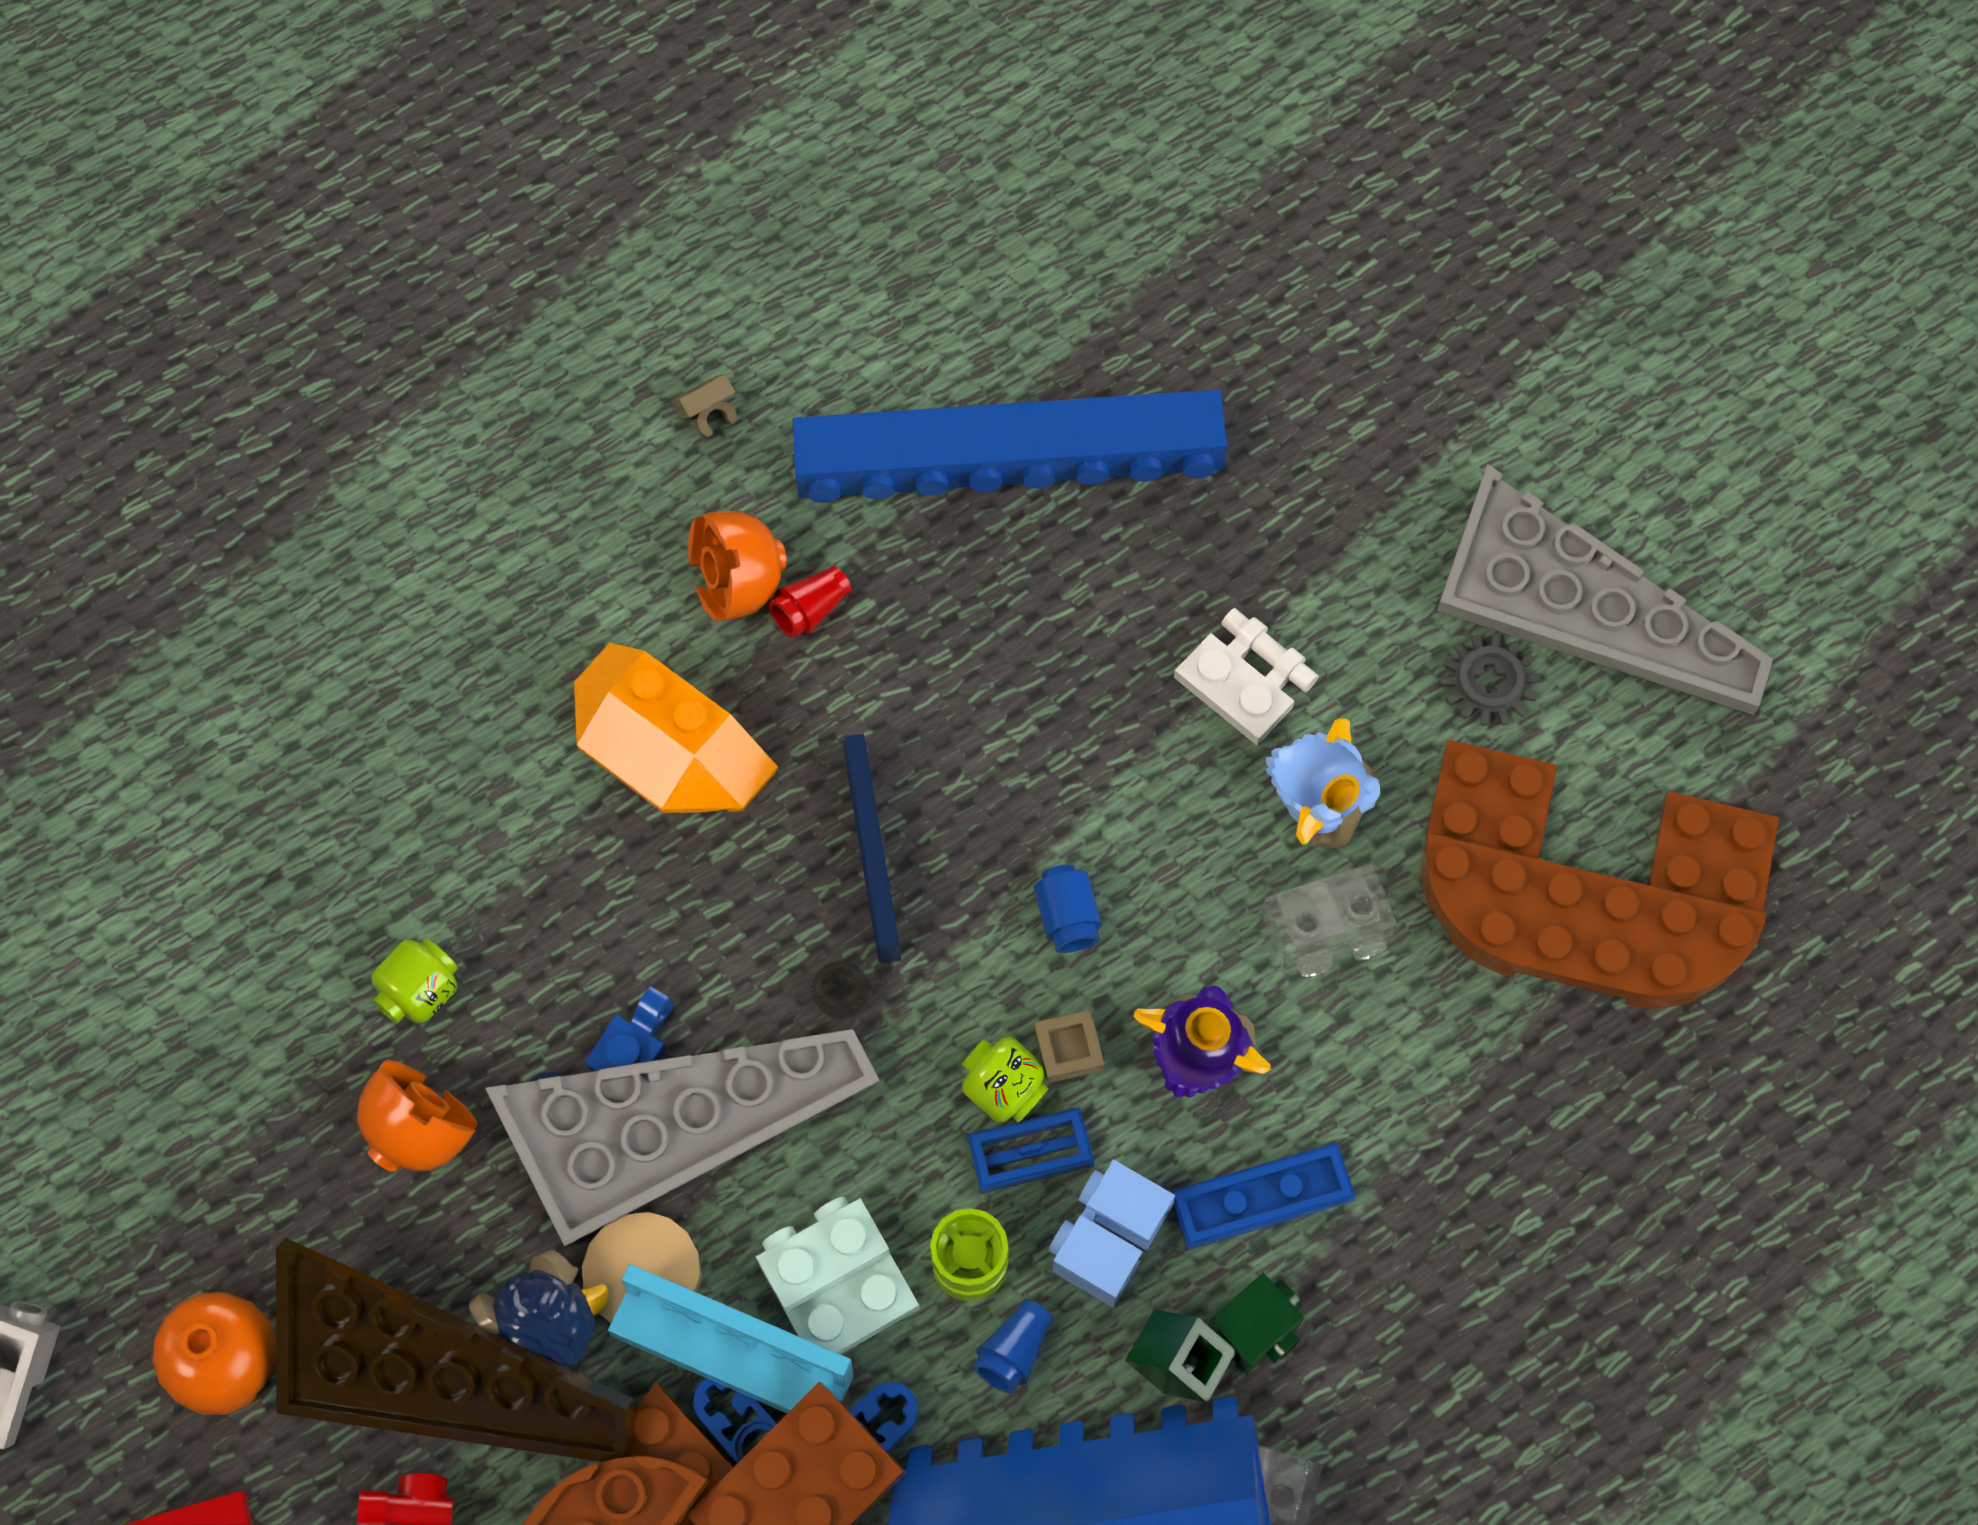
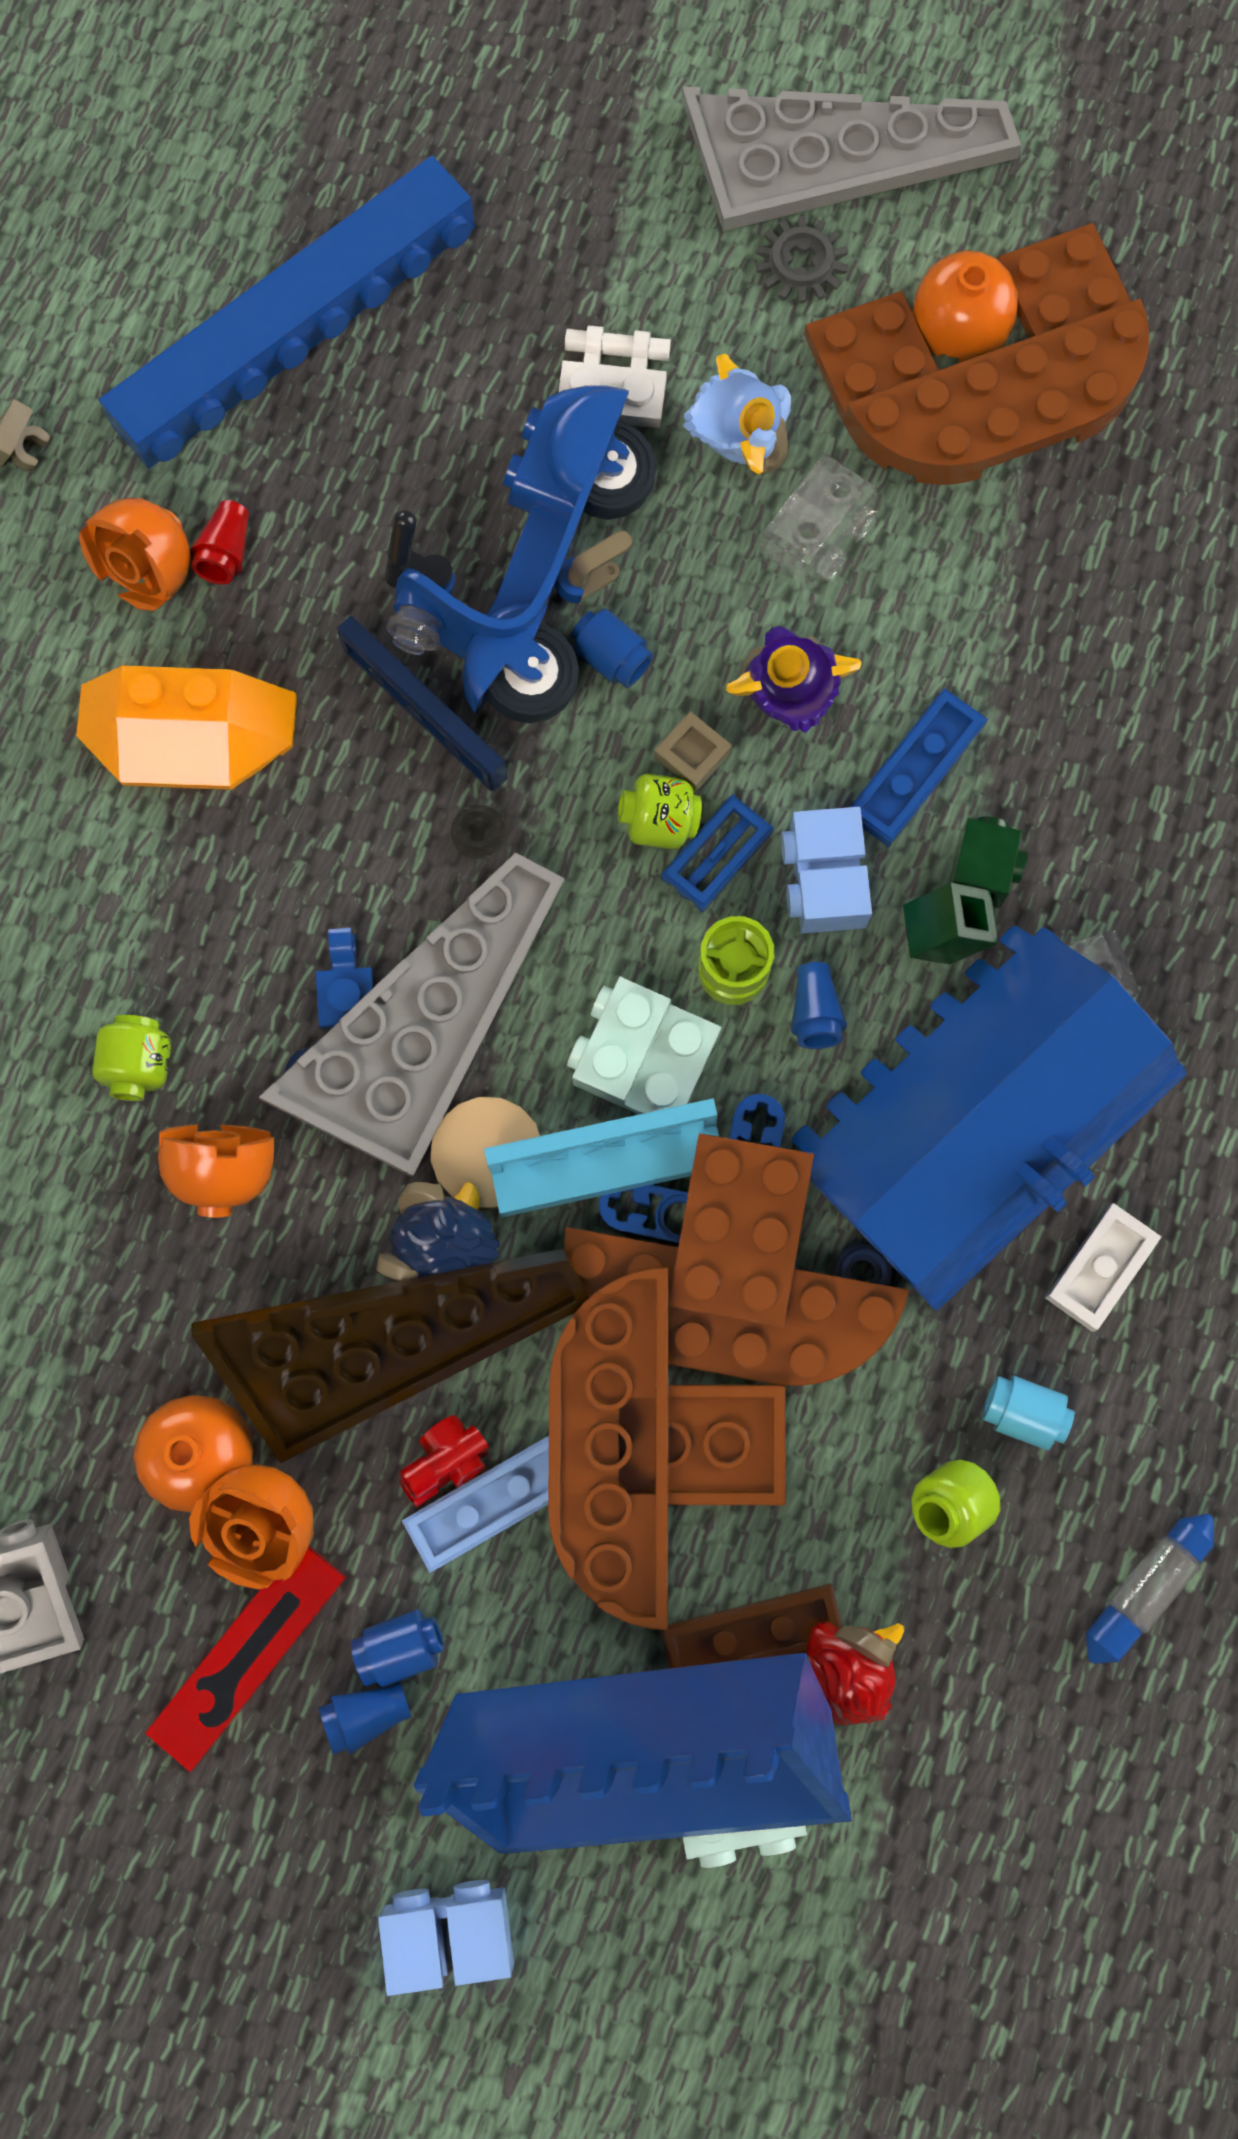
camera: 35 degrees left, 10 degrees up
(212, 1447) = (257, 1528): none -> orange cylinder
(1145, 729) = (573, 465): none -> blue piece
(1605, 817) = (966, 305): none -> orange cylinder

